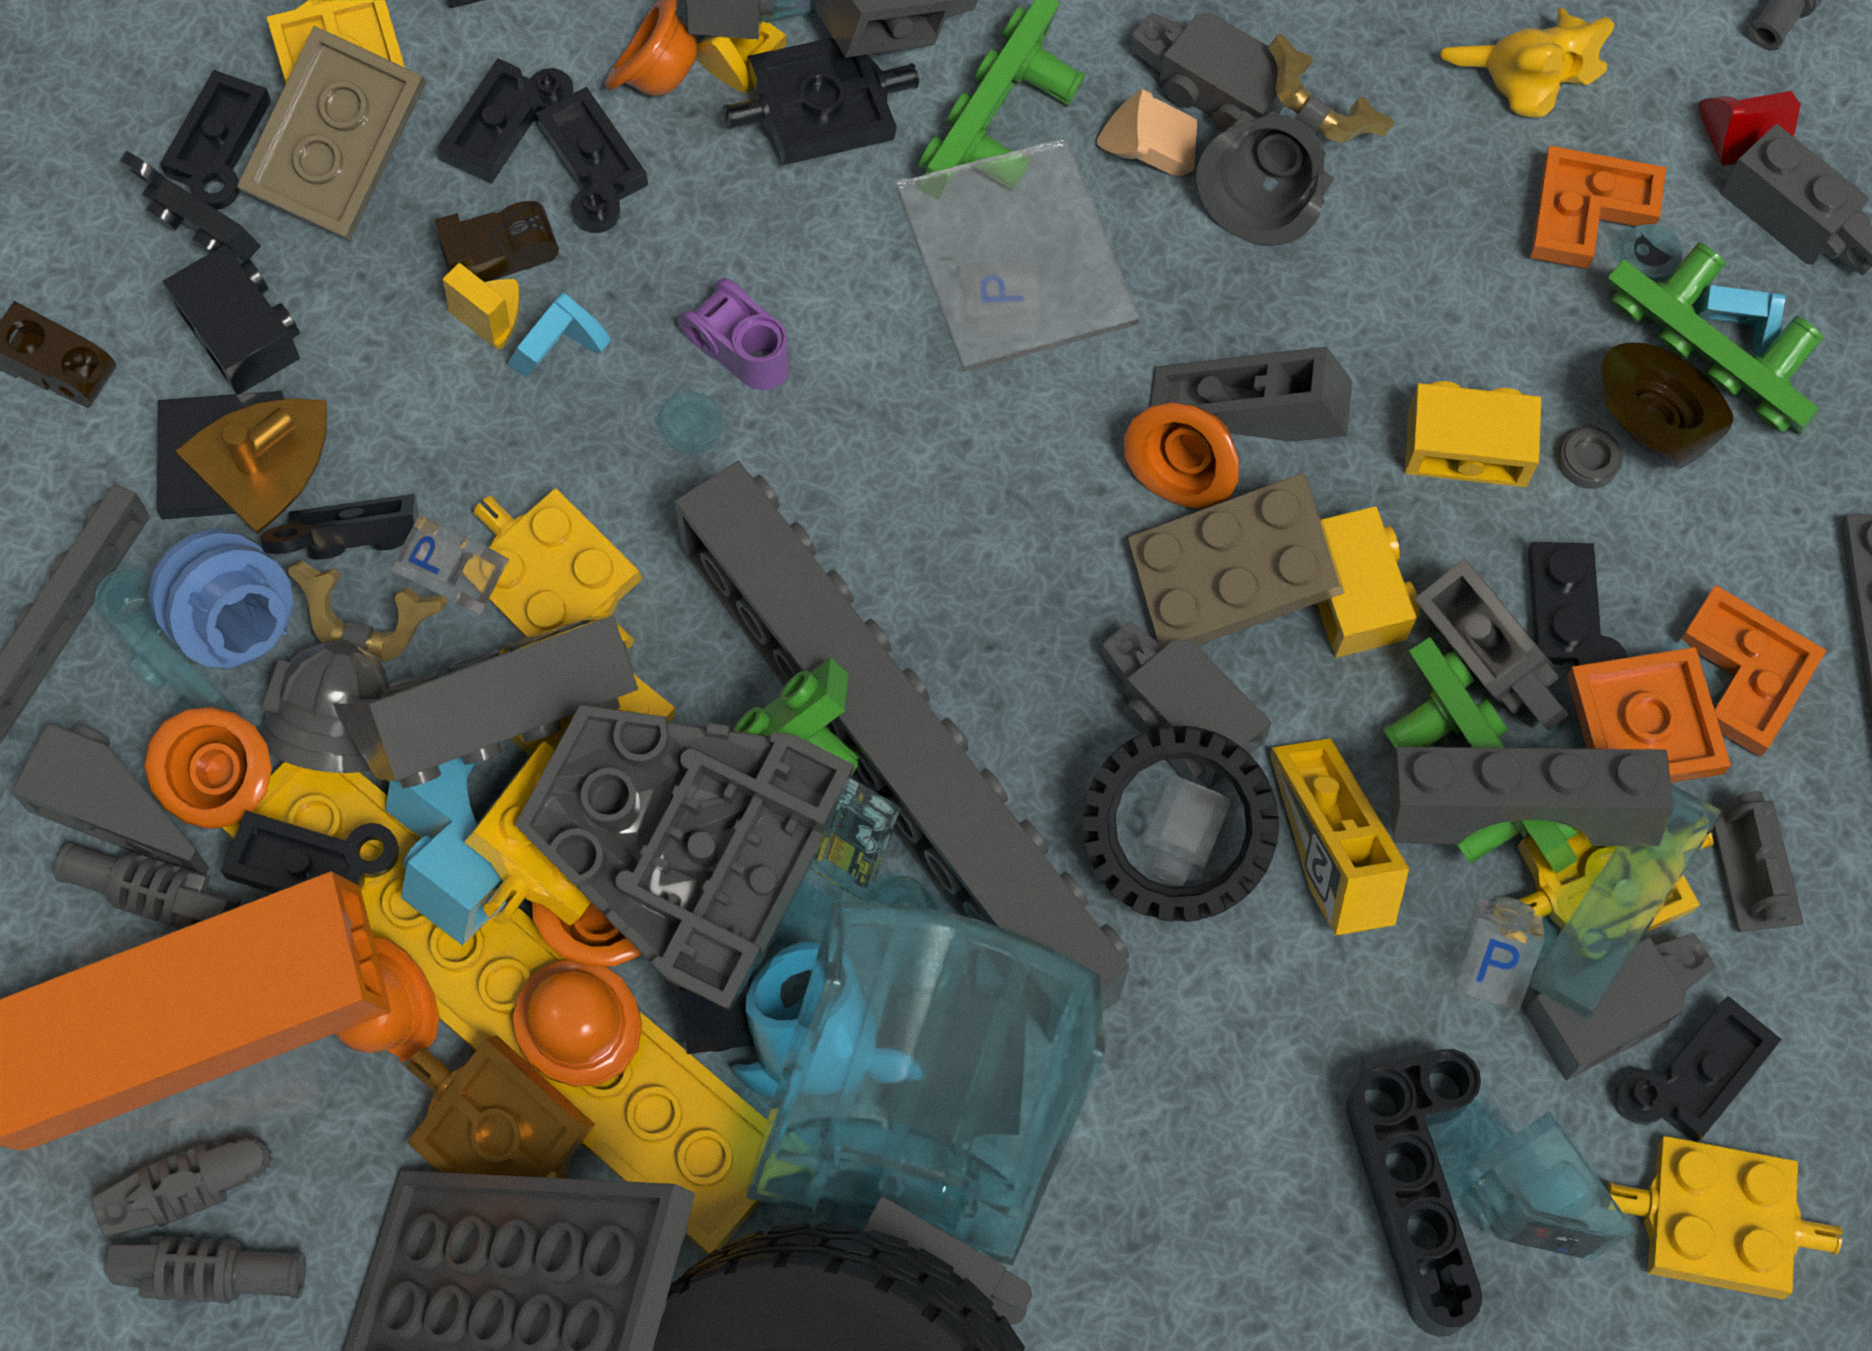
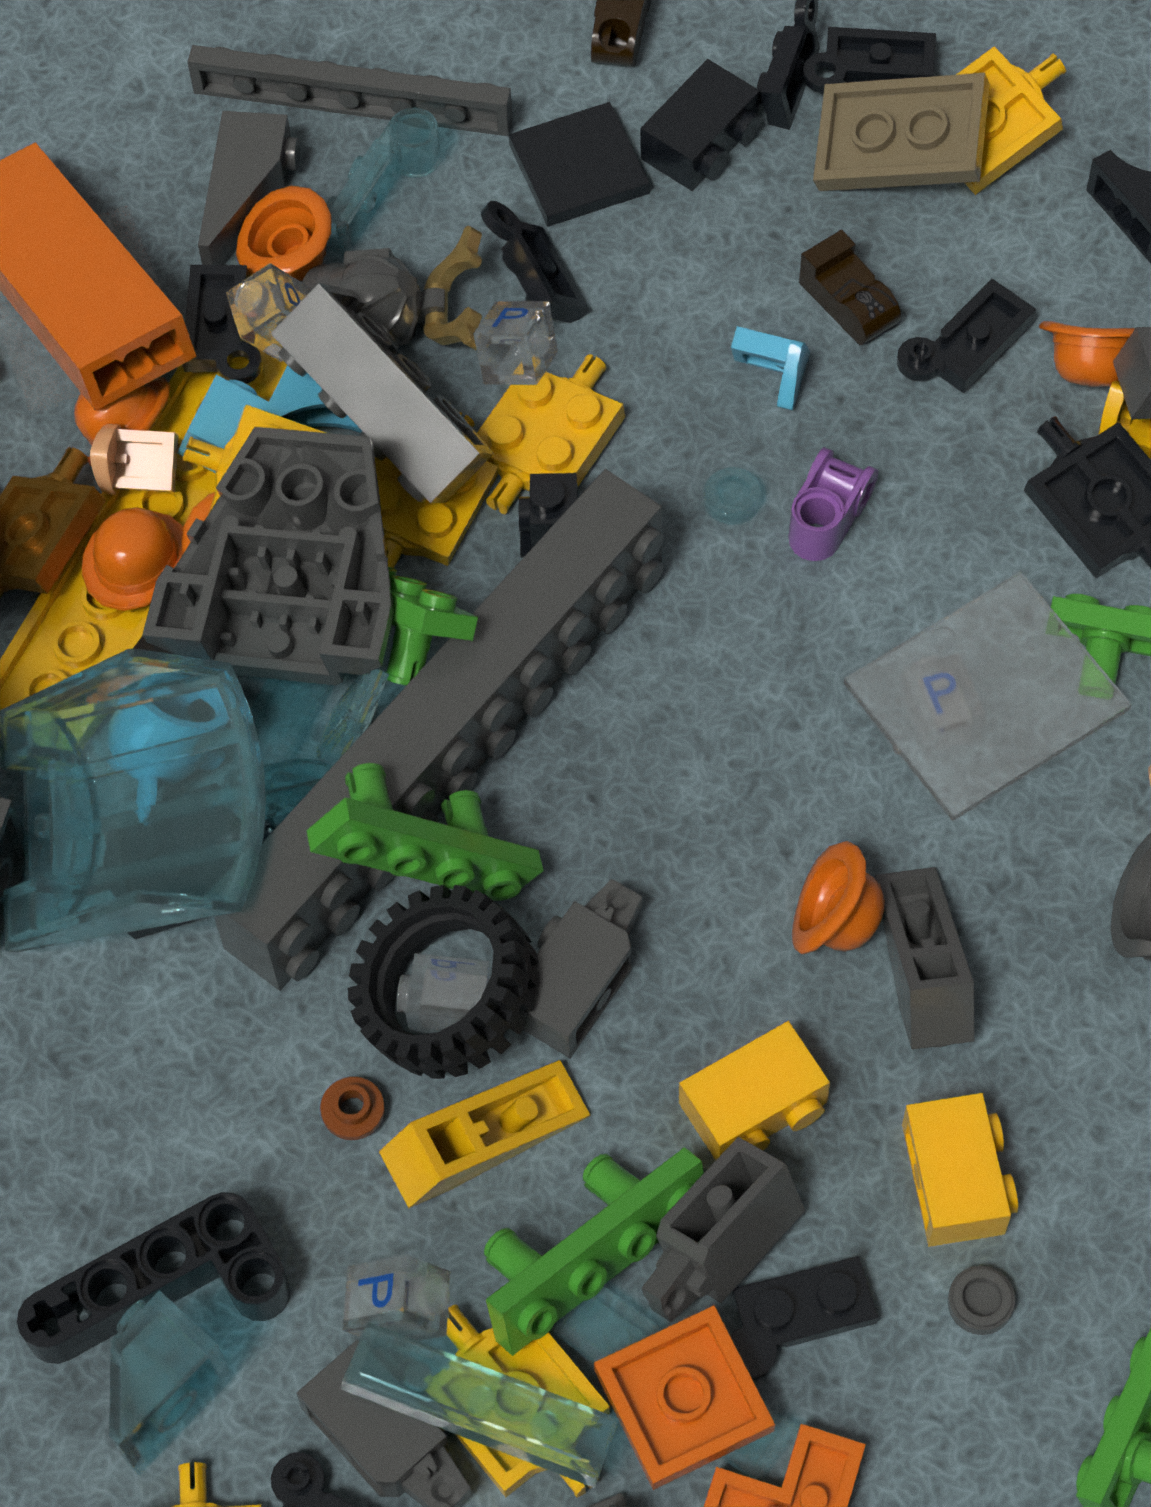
camera: 80 degrees right, 5 degrees down
(143, 885) = (179, 233): dark grey hinge -> none
(220, 598) = (428, 190): medium blue piece -> none
(260, 456) = (582, 187): pearl gold shield -> none
(328, 792) = (263, 304): none -> clear brick
(456, 989) = (134, 459): none -> light nougat tile
(482, 306) = (782, 303): yellow tile -> none
(500, 117) = (980, 254): black hinge -> none
(667, 592) = (549, 499): none -> black brick
(1055, 813) = (460, 853): none -> bright green plate
(1236, 563) = (731, 975): dark tan plate -> none
(1266, 972) = (352, 1125): none -> dark orange plate
(1603, 793) = (559, 1314): dark grey arch -> none
(1663, 401) = (1058, 1349): dark brown hat -> none

